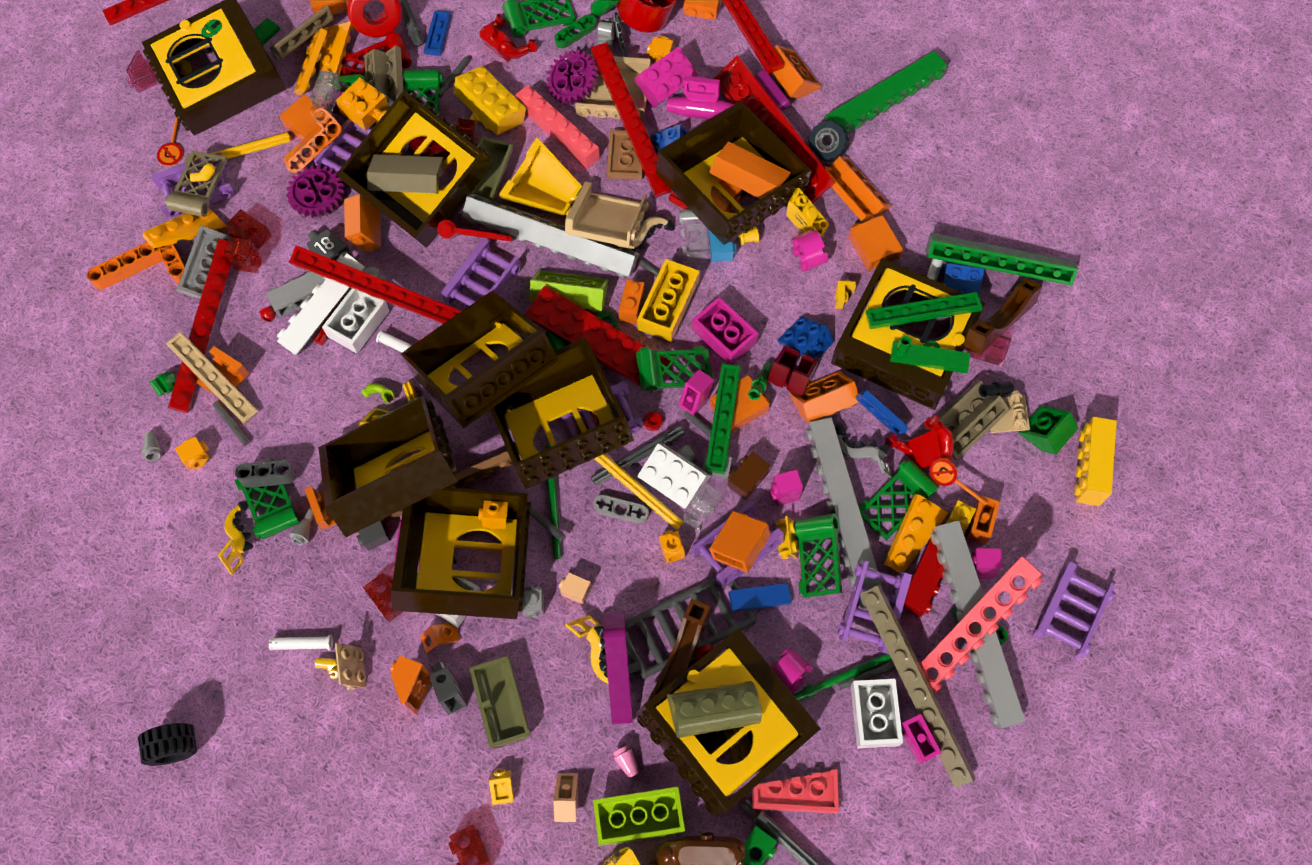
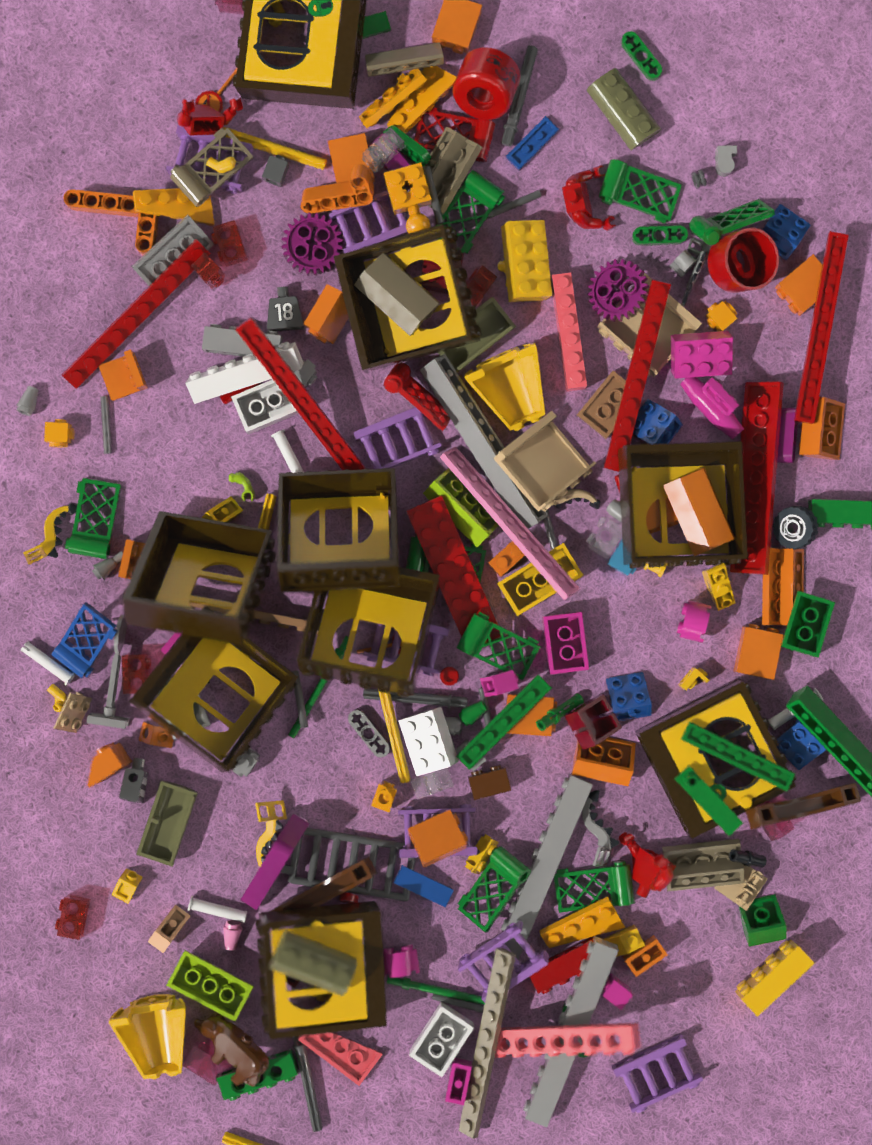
camera: 35 degrees right, 20 degrees up
(163, 383) = (71, 348): green piece -> none
(171, 157) = (204, 119): none -> red torso
(212, 377) = (113, 375): tan tile -> none
(252, 161) = (275, 170): none -> dark grey brick
(258, 469) = (96, 494): dark grey beam -> none
(267, 314) = (195, 342): red hinge -> none
(317, 620) = (74, 655): none -> blue piece
(385, 649) = (108, 717): none -> light grey piece
(493, 514) = (261, 671): light orange brick -> none
(575, 588) = (286, 773): light nougat brick -> none
(598, 748) = (217, 910): none -> white pin
(617, 272) = (510, 523): none -> bright pink plate
(693, 433) = (472, 713): none -> green cone
(786, 488) = (509, 817): dark pink brick -> none
(881, 412) = (636, 810): blue tile -> none
(895, 197) = (807, 624): none -> green slope
(946, 473) = (644, 902): piece -> none

